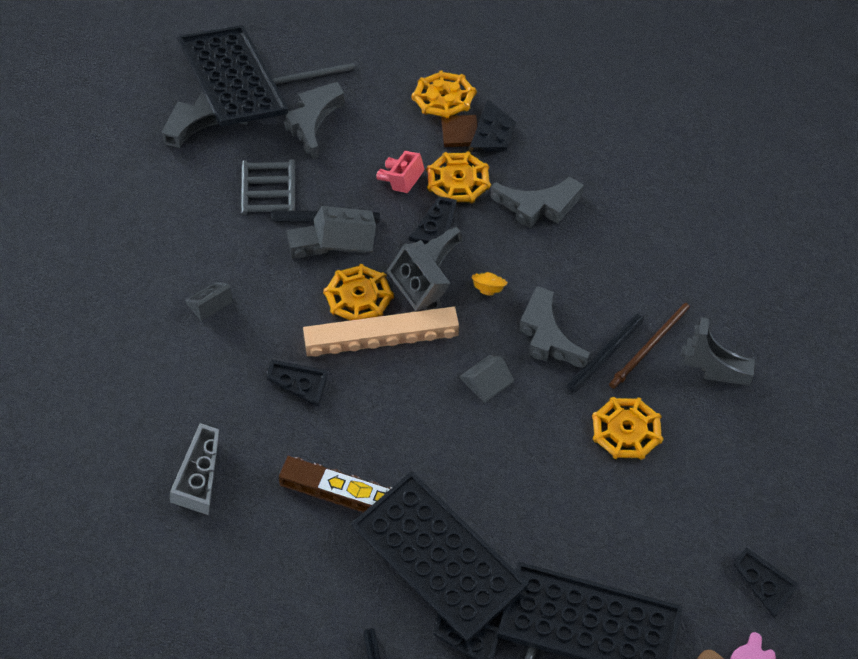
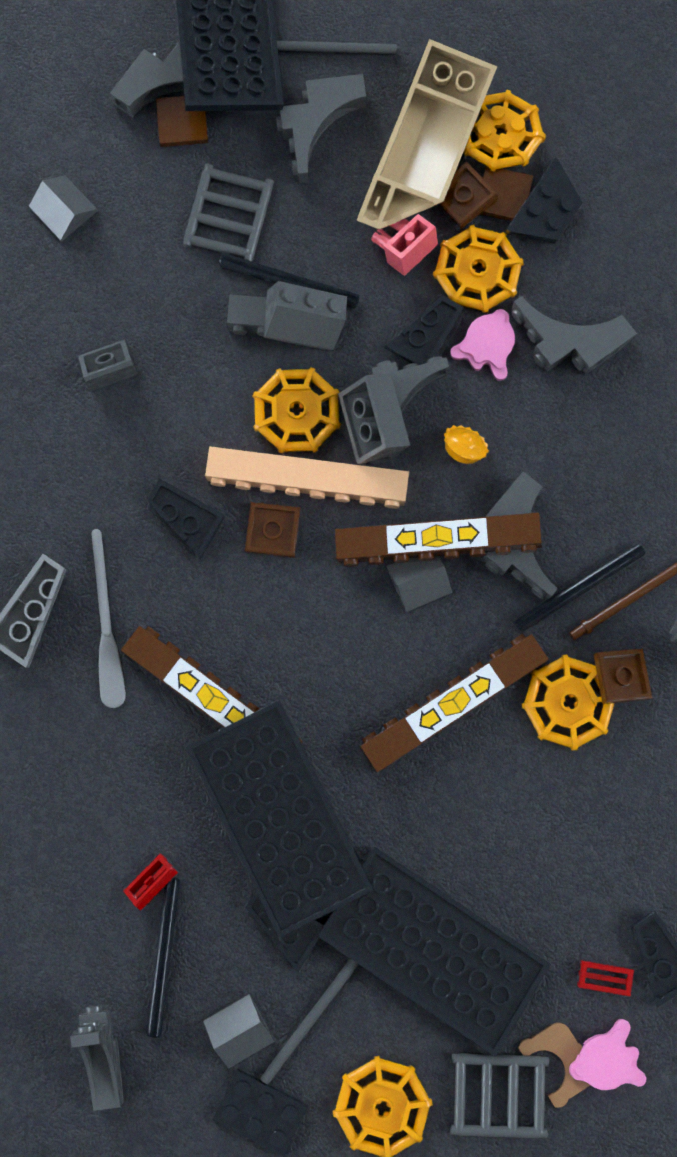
camera: 15 degrees right, 25 degrees up
(144, 211) = (61, 206): none -> slope
(216, 141) = (180, 126): none -> reddish brown tile
(272, 497) = (110, 668): none -> light grey piece
(352, 636) = (152, 884): none -> red tile
(366, 374) = (272, 530): none -> reddish brown tile
(395, 105) = (428, 136): none -> tan slope
(432, 136) = (467, 196): none -> reddish brown tile
(482, 219) = (487, 343): none -> bright pink tile
(491, 341) = (438, 538): none -> reddish brown brick
(540, 450) = (453, 703): none -> brick
(659, 399) = (622, 676): none -> reddish brown tile
(729, 615) = (583, 974): none -> red tile

